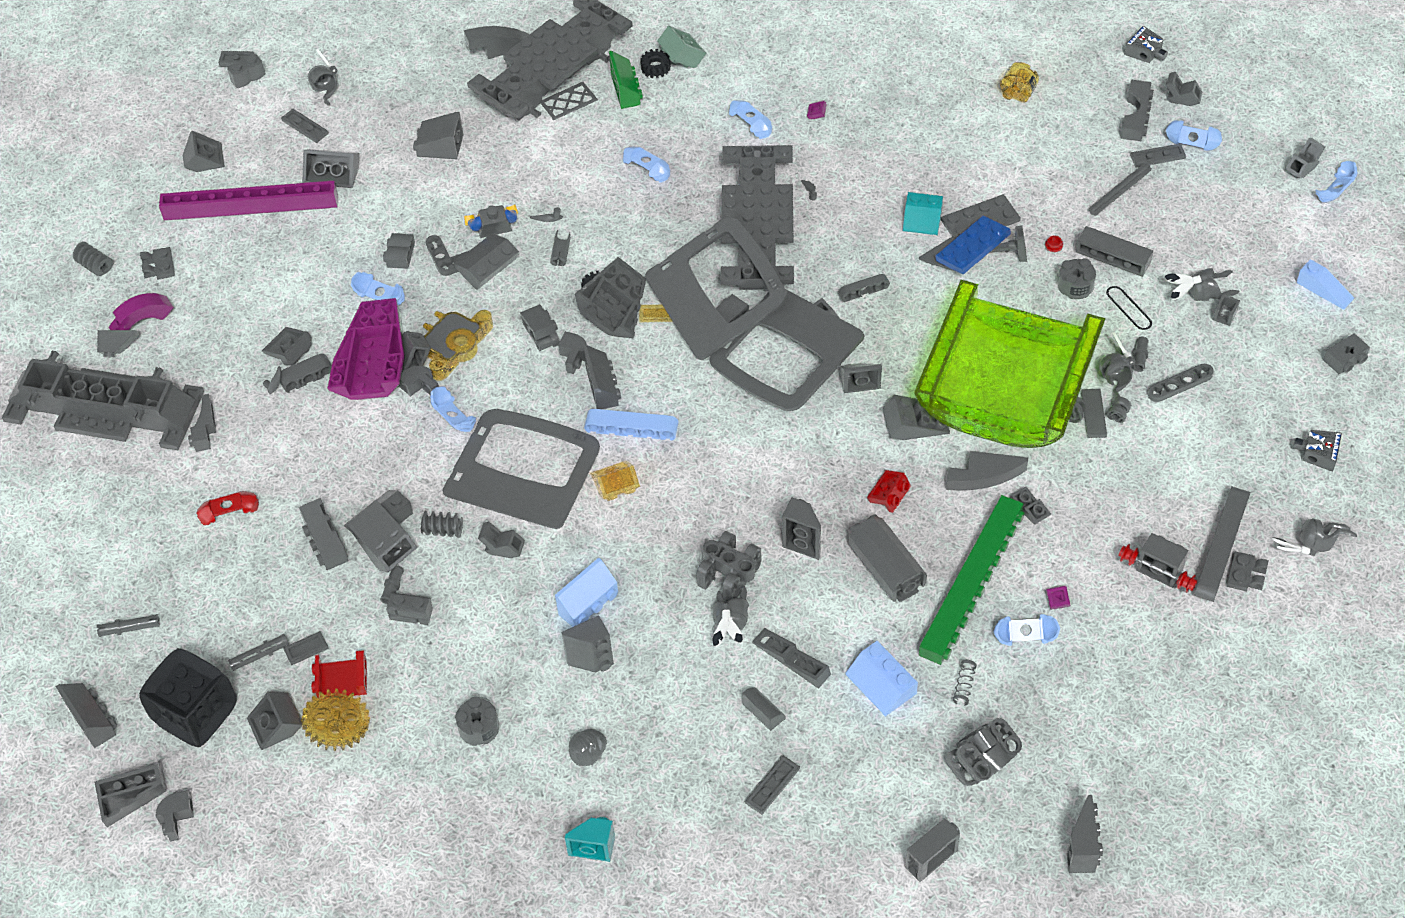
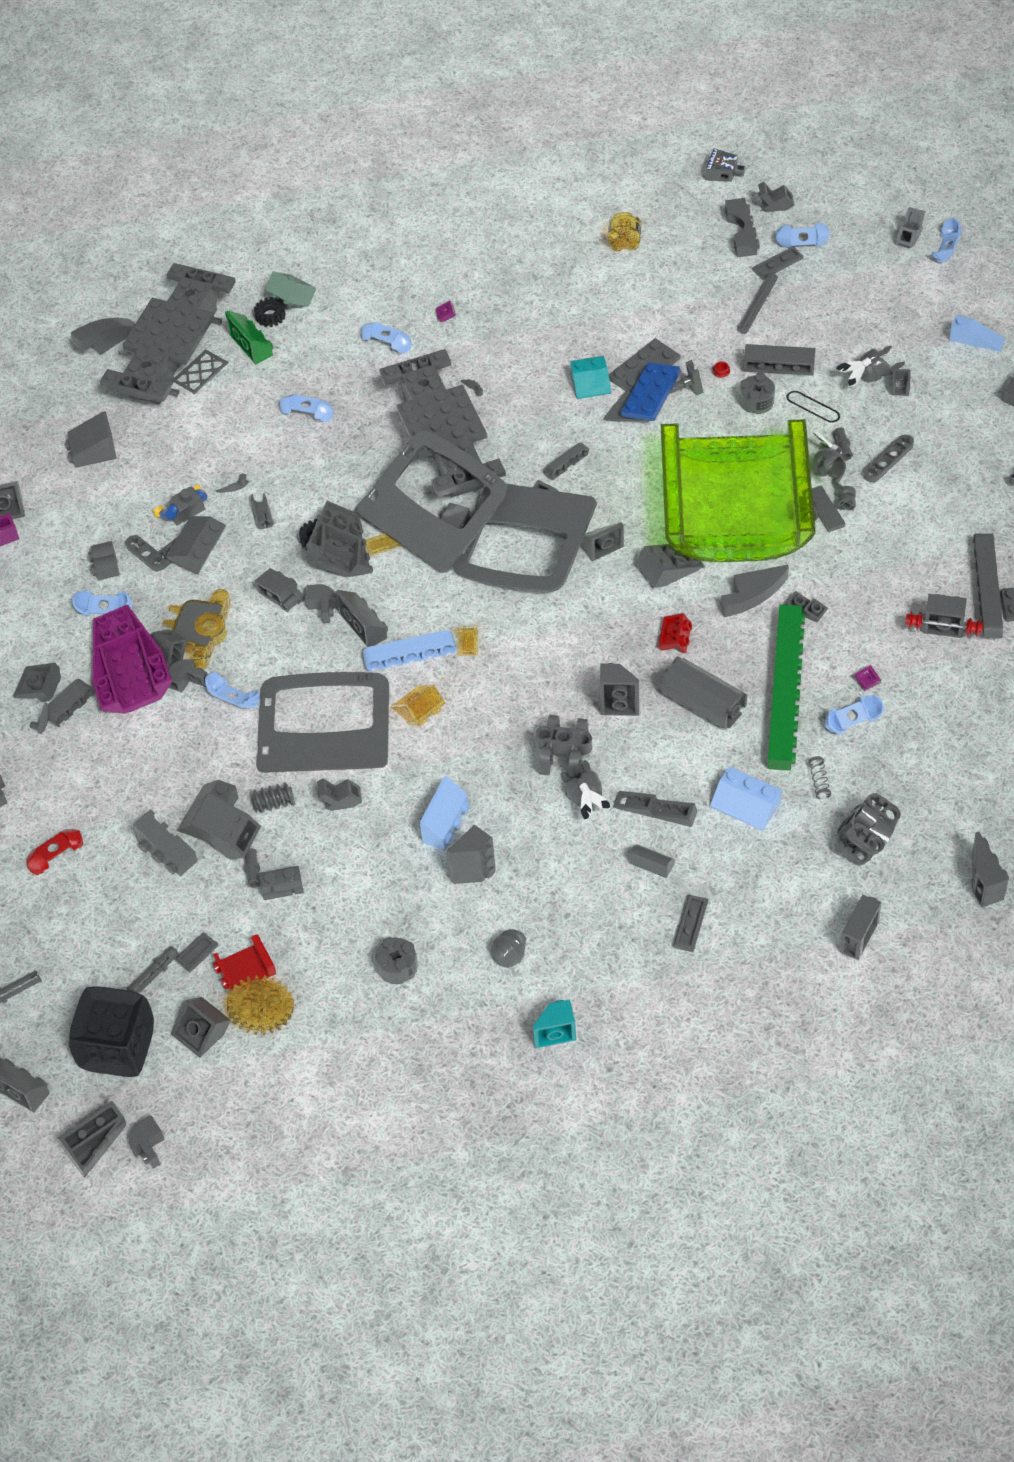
camera: 20 degrees left, 0 degrees up
(691, 432) = (468, 640): none -> clear yellow slope

